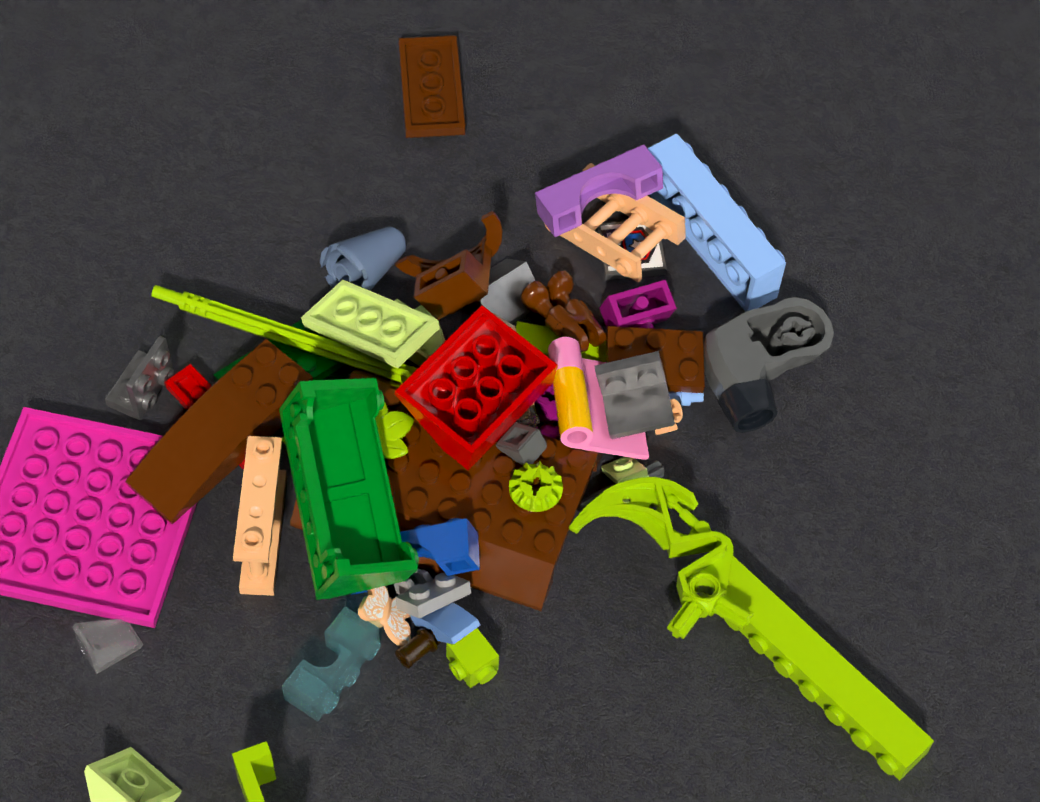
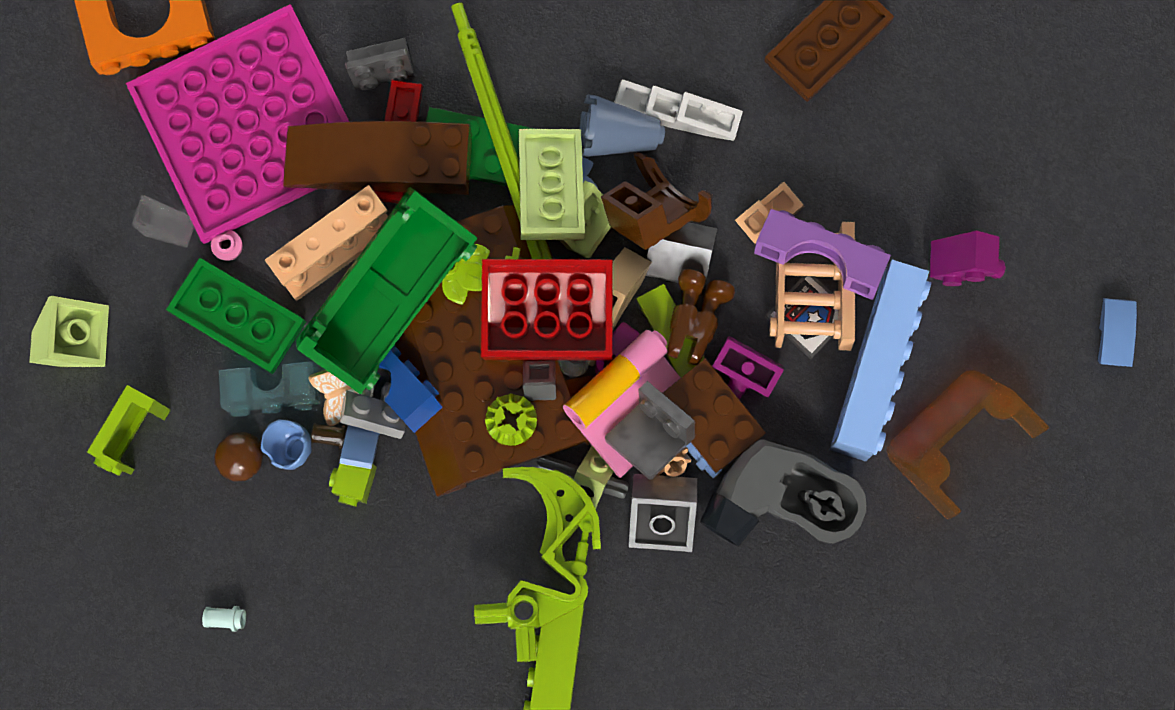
camera: 60 degrees right, 20 degrees up
(177, 618) = (230, 253): none -> bright pink plate
(243, 646) = (236, 315): none -> green plate
(367, 736) = (239, 456): none -> reddish brown hair
(394, 684) = (286, 444): none -> medium blue hair
(396, 210) = (680, 111): none -> white slope
(526, 223) = (779, 199): none -> light nougat slope
(683, 113) = (966, 257): none -> magenta brick
(702, 451) = (663, 513): none -> flat silver slope
(810, 250) = (918, 444): none -> clear orange windscreen
(822, 79) = (1118, 332): none -> medium blue slope

